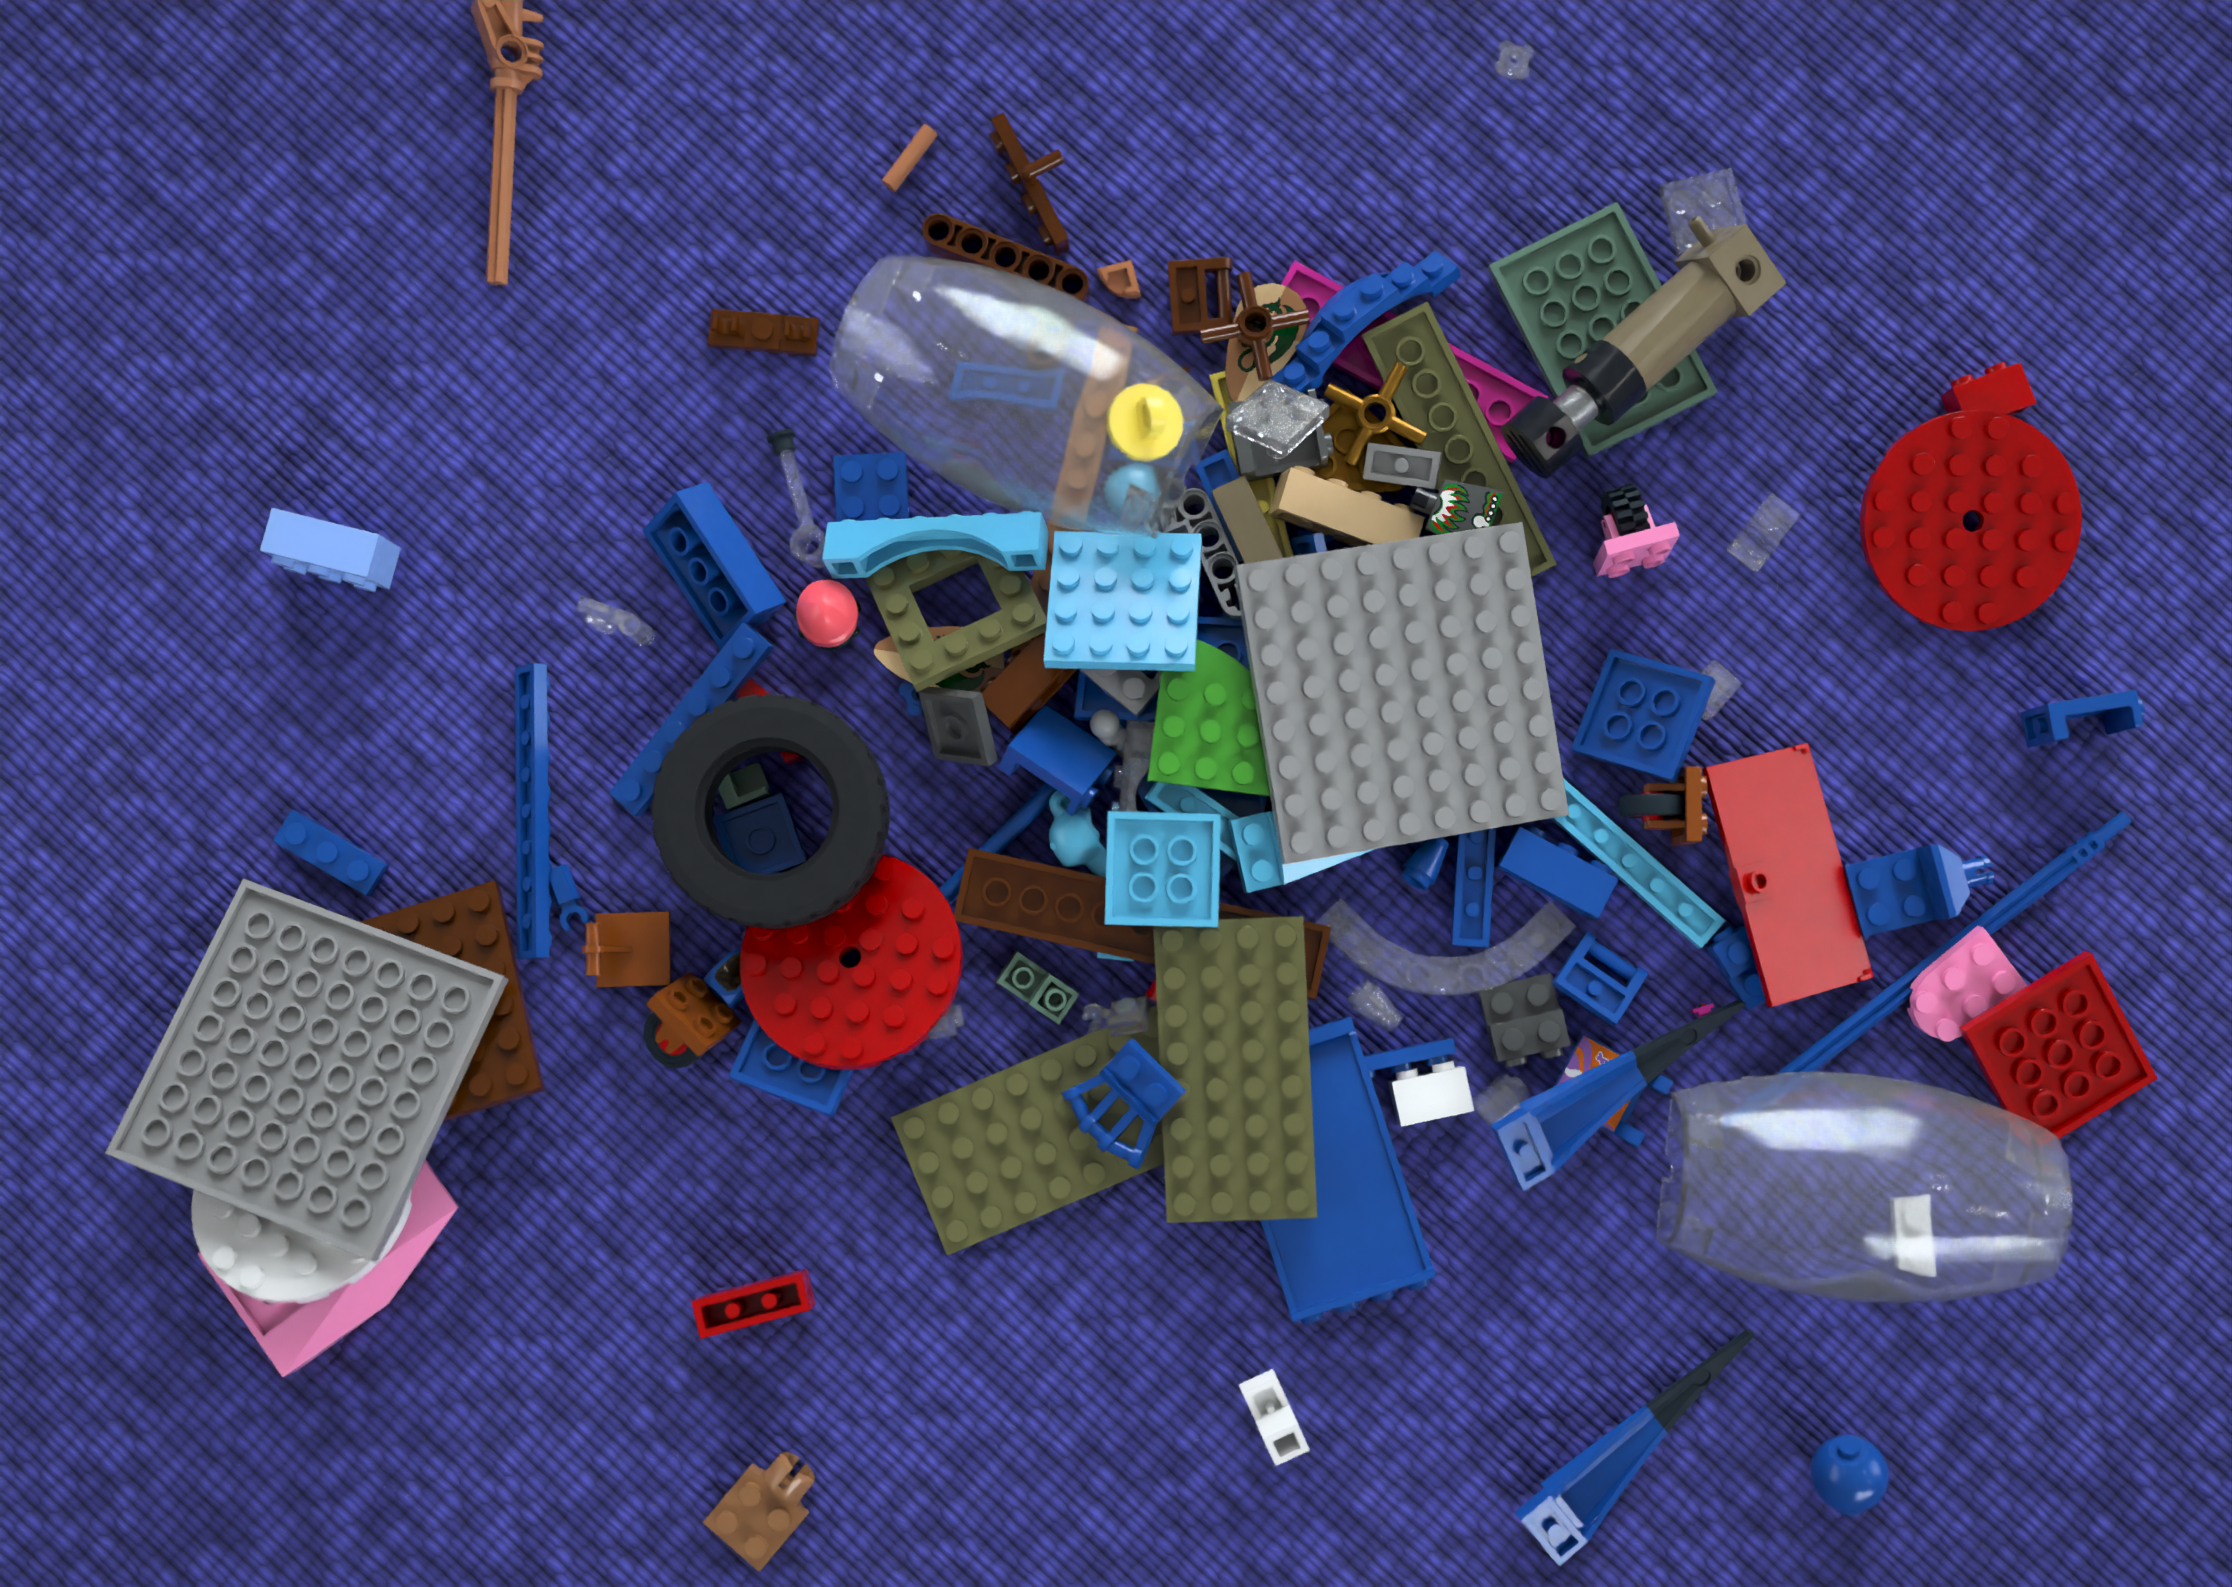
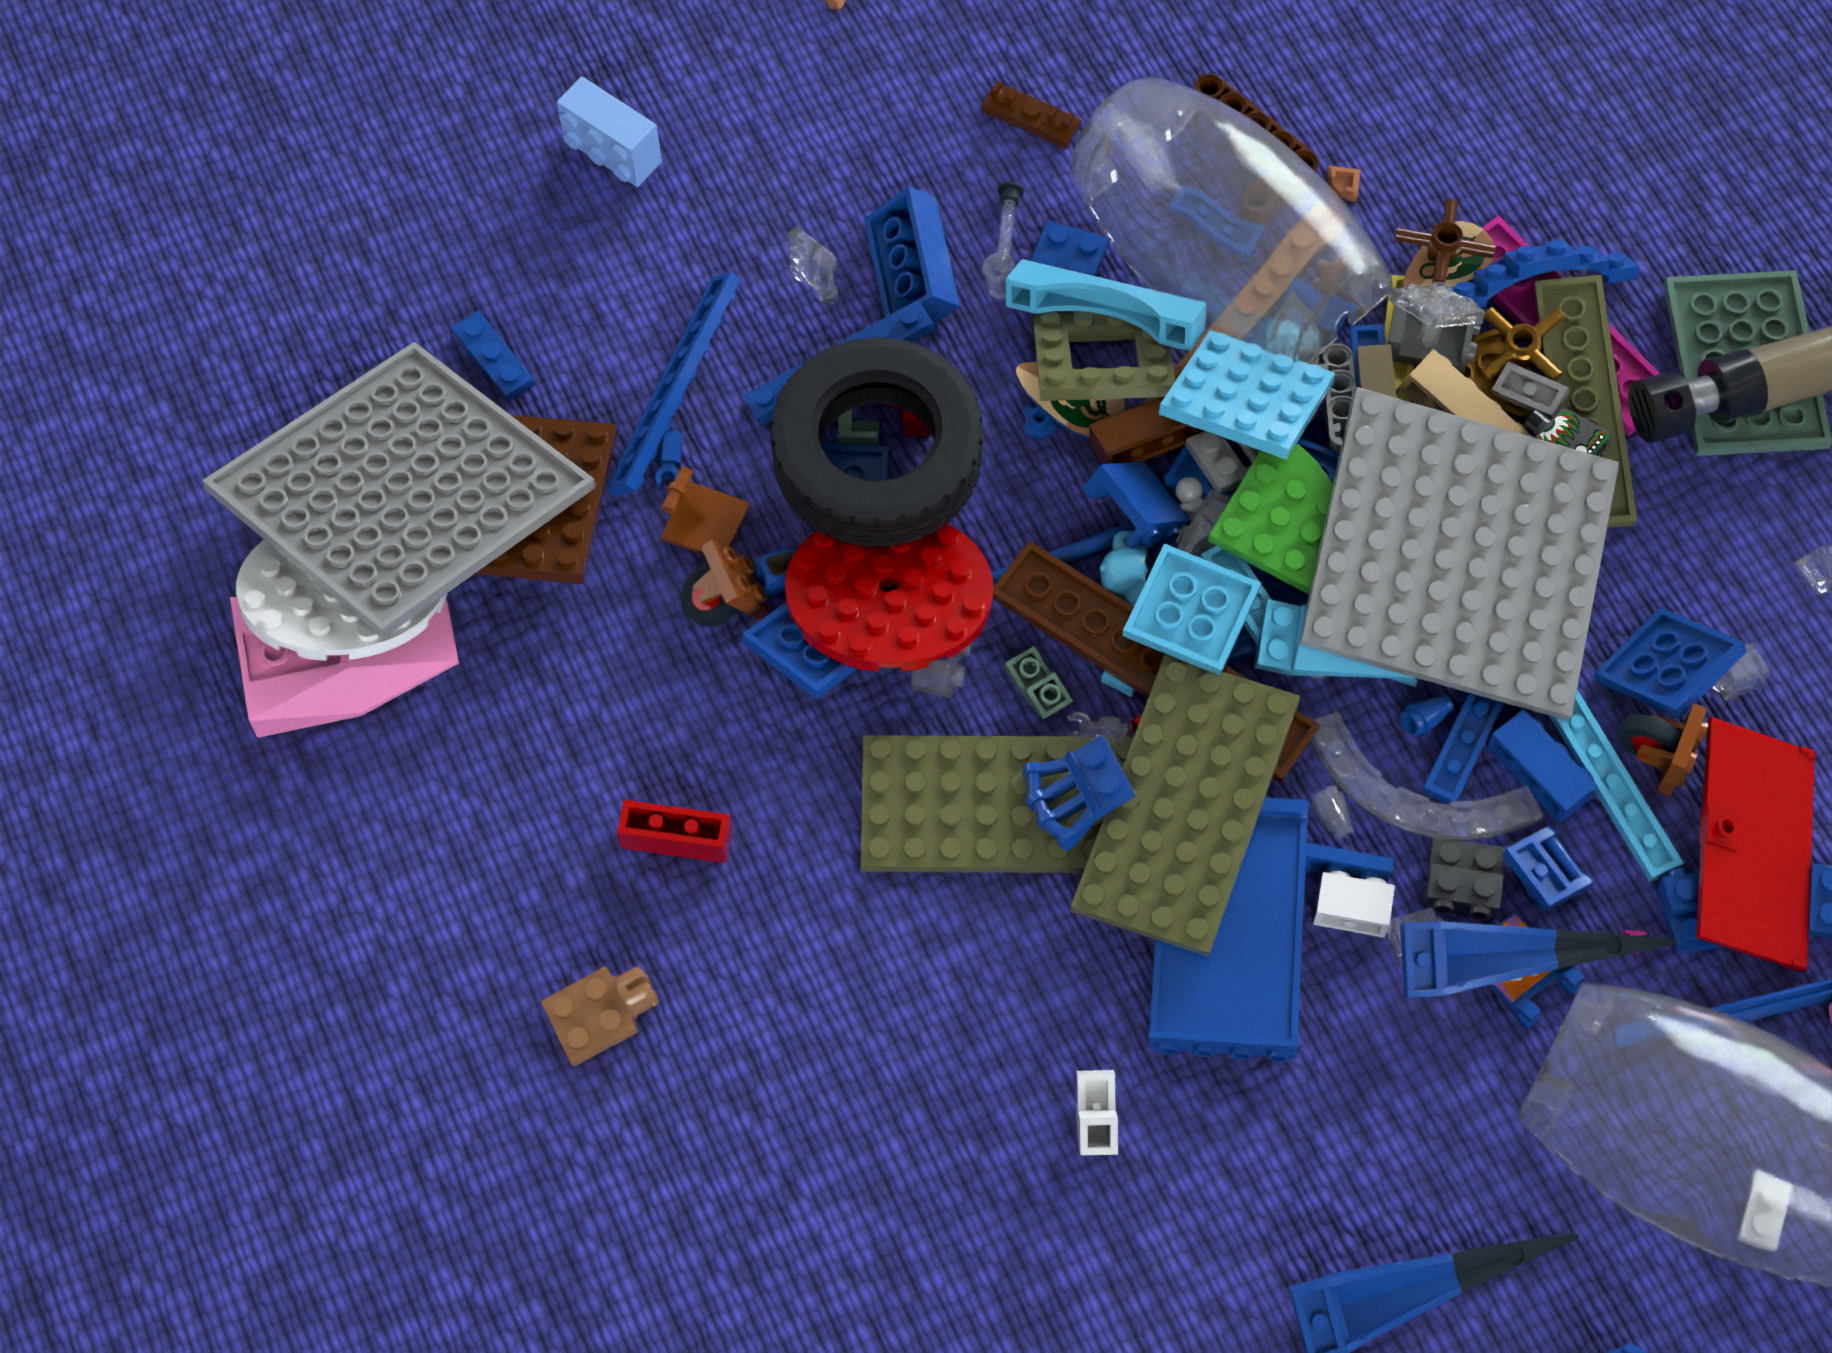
camera: 20 degrees right, 20 degrees down
(827, 614) = (989, 330): coral hair -> none
(909, 158) = (1207, 36): nougat piece -> none
(958, 726) = (1063, 444): dark grey plate -> none
(1026, 173) = (1296, 74): reddish brown plate -> none
(1144, 422) = (1324, 241): light yellow tile -> none
(1189, 297) = (1399, 209): reddish brown plate -> none
(1513, 70) = (1743, 148): clear plate -> none
(1631, 534) = (1712, 522): bright pink plate -> none

